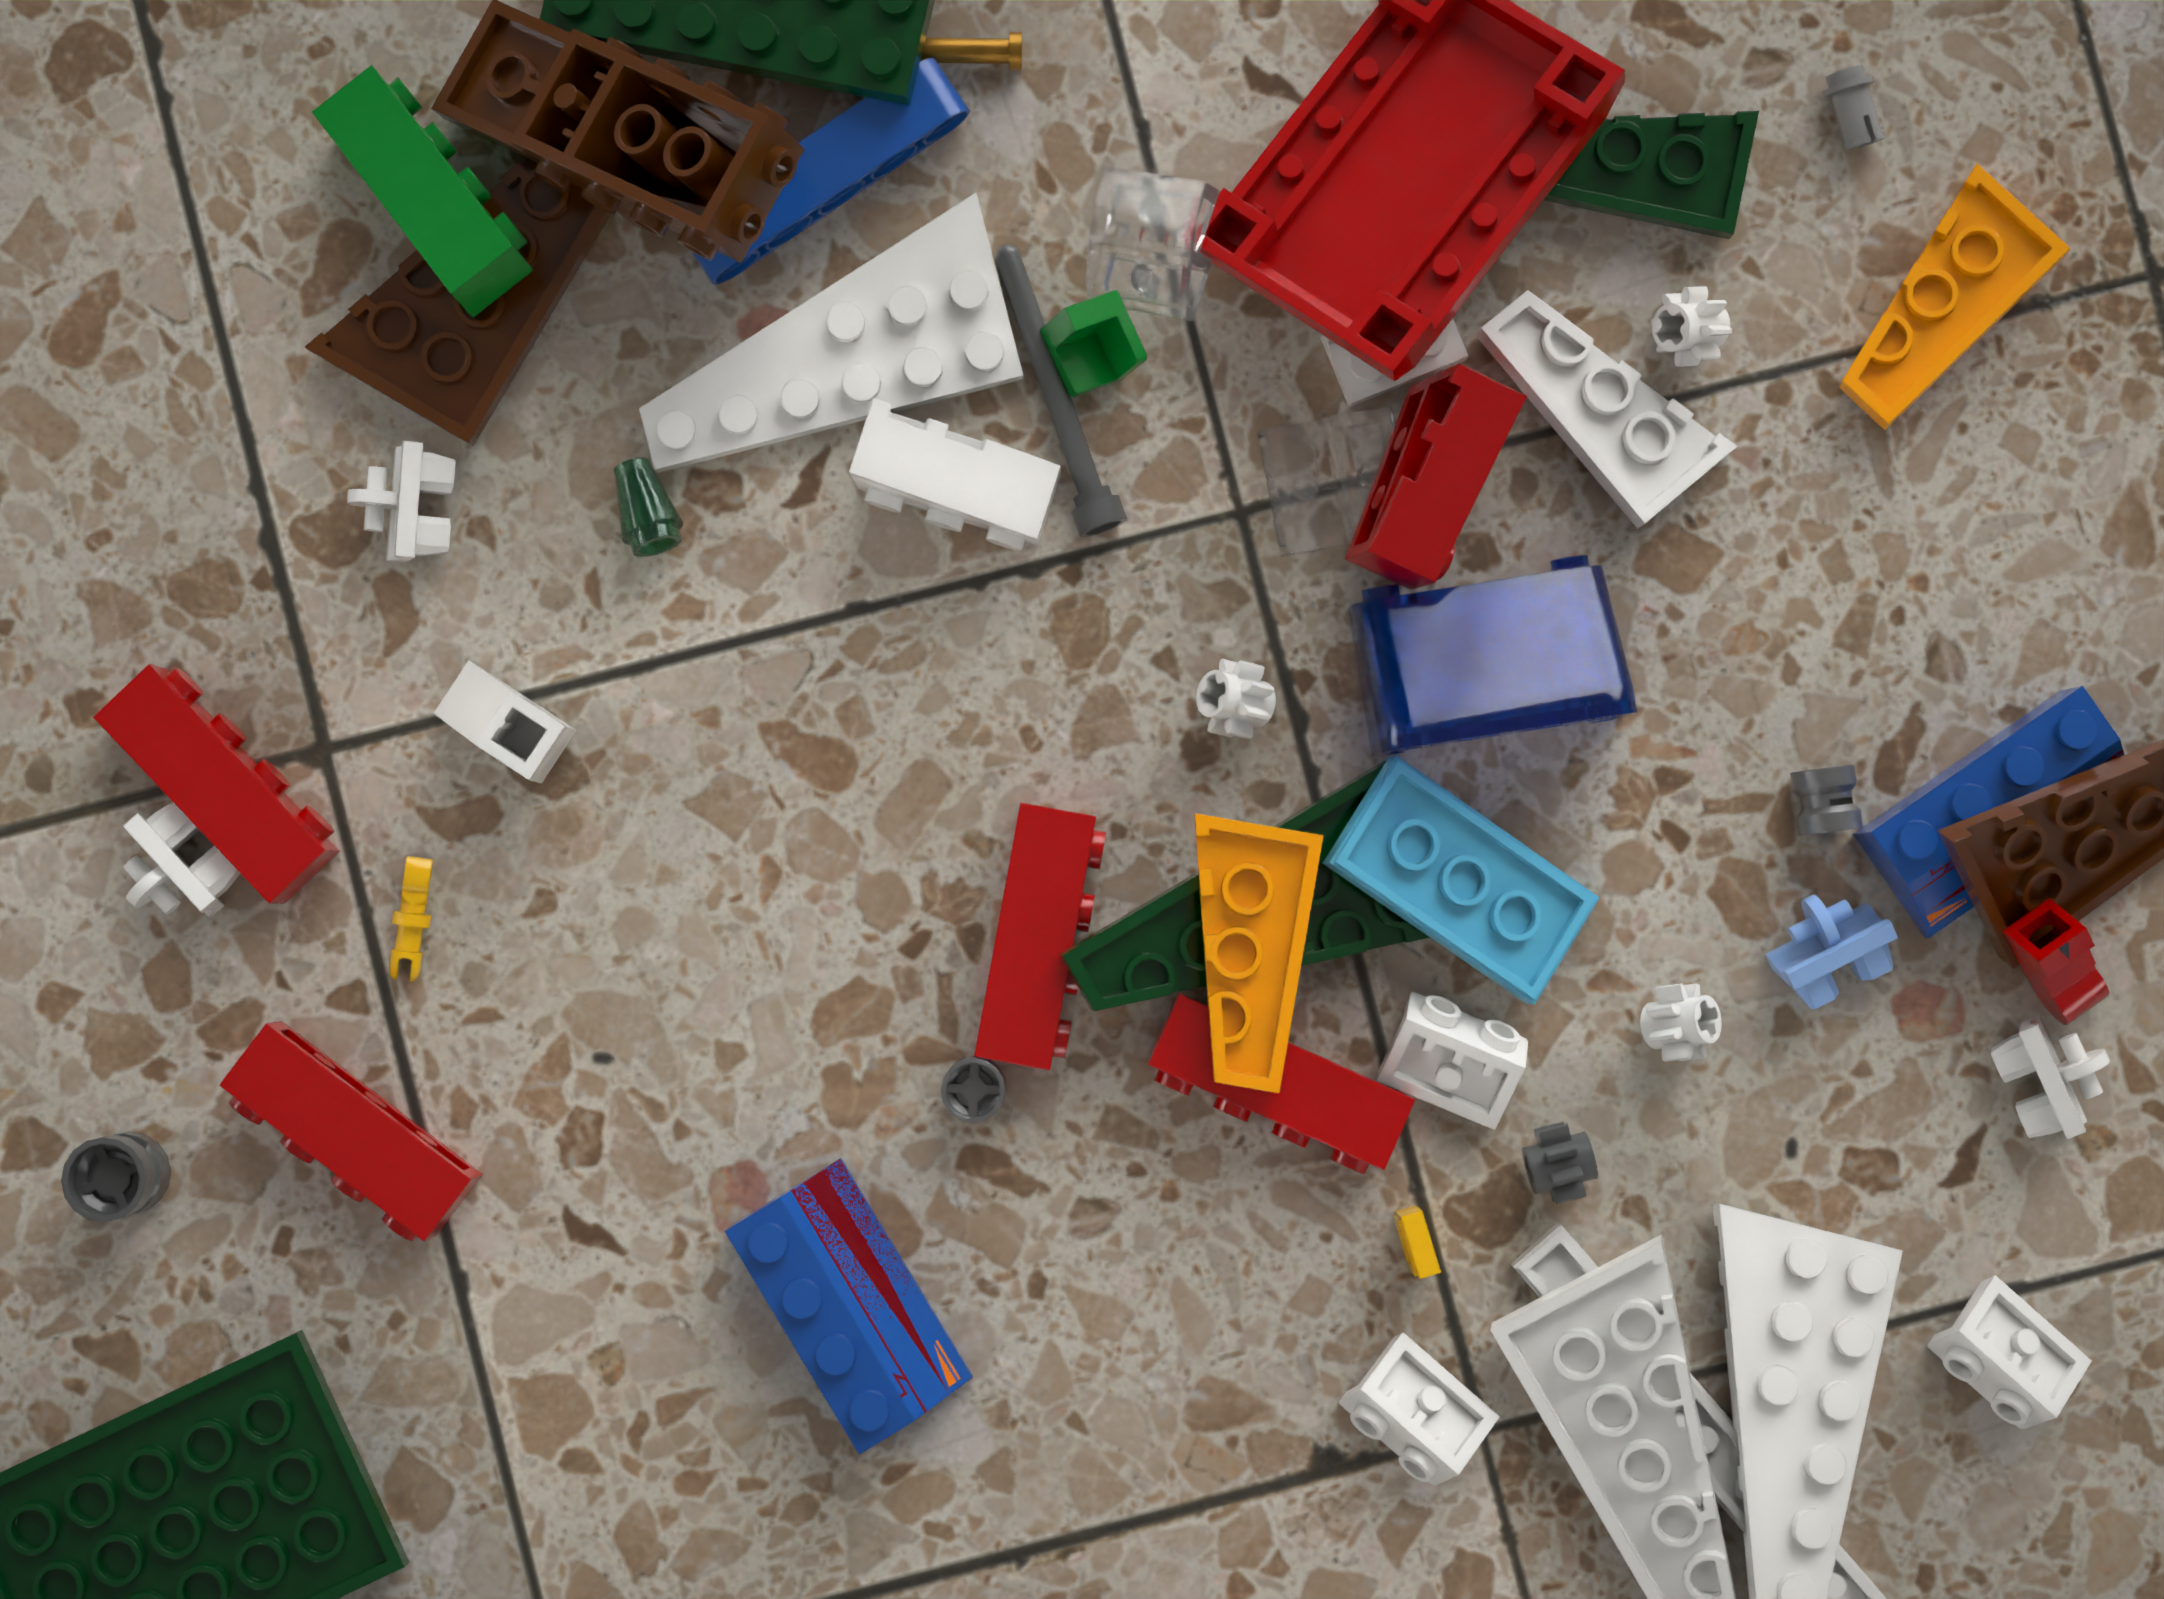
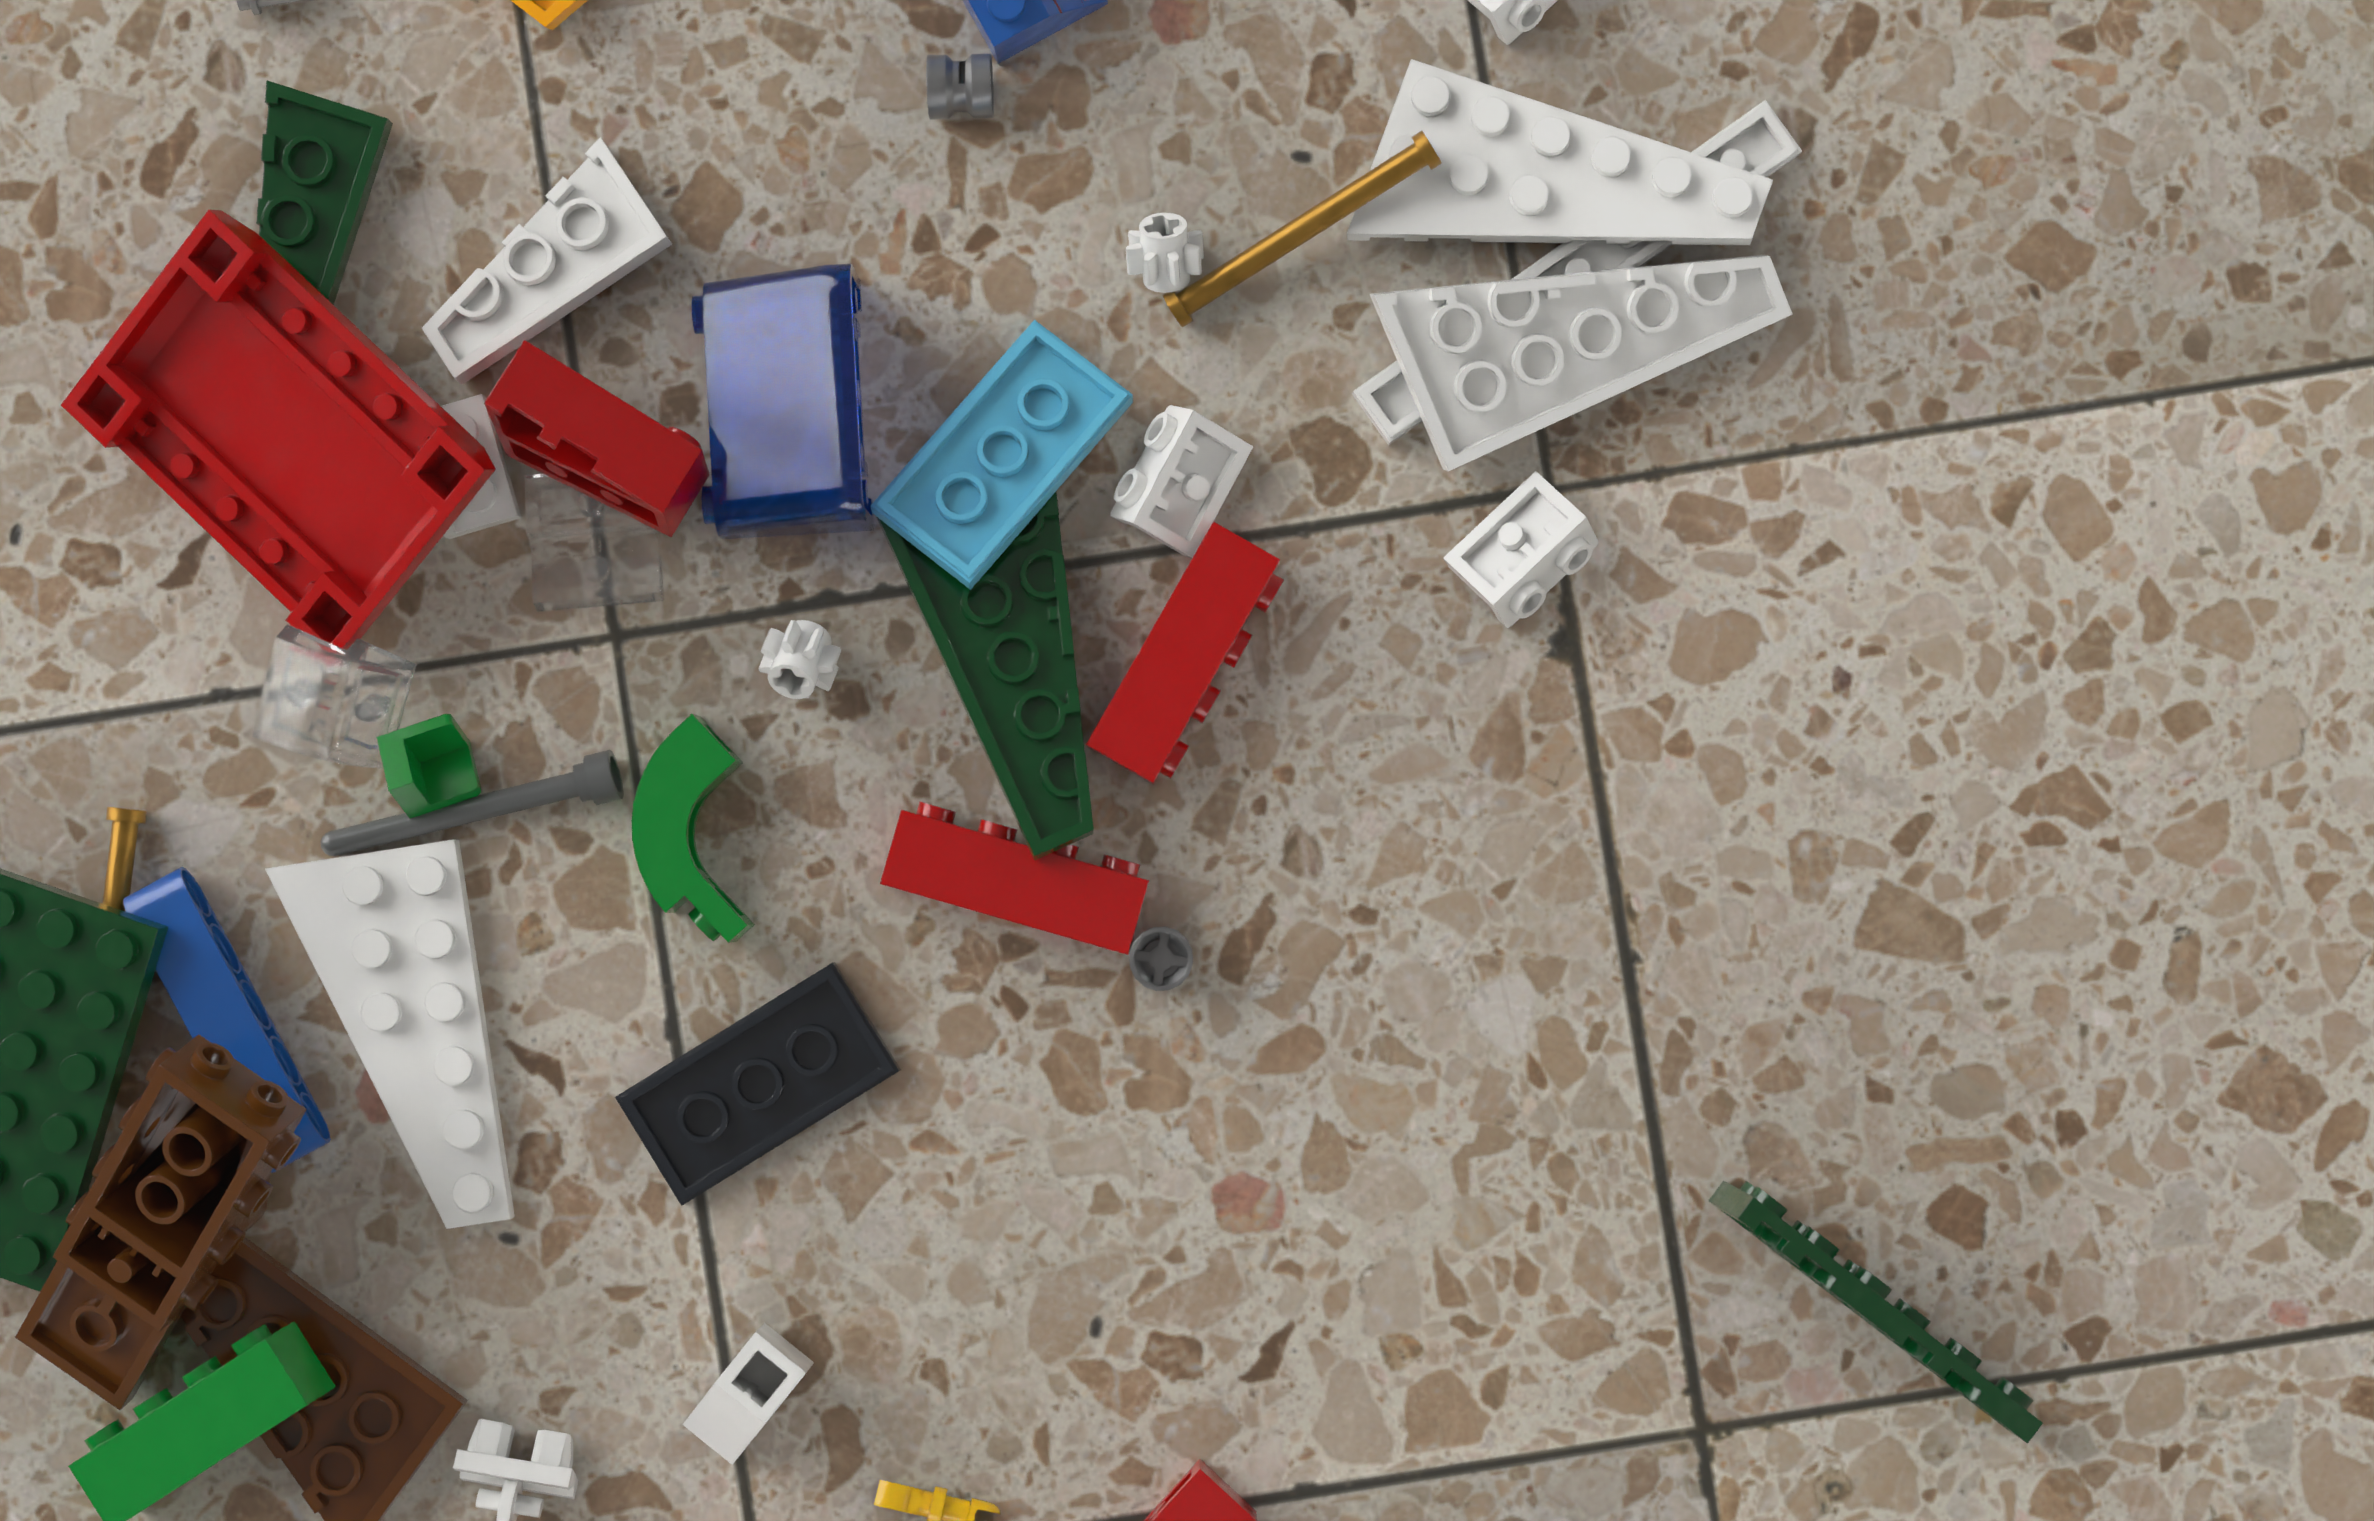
camera: 85 degrees left, 0 degrees up
(645, 509) = (549, 1232): clear green cone -> none
(811, 699) = (757, 1083): none -> black tile
(849, 1305) = (1363, 1103): blue slope -> none
(953, 477) = (548, 919): white wedge -> none
(1057, 580) = (664, 826): none -> green arch
(1254, 927) = (1027, 663): light orange wing -> none
(1416, 1242) = (1355, 535): yellow tile -> none
(1560, 1162) = (1291, 385): dark grey gear -> none
(1691, 326) = (475, 170): white gear -> none
(1720, 1160) = (1302, 229): none -> pearl gold bar
(1829, 941) = (1099, 100): light blue hips -> none

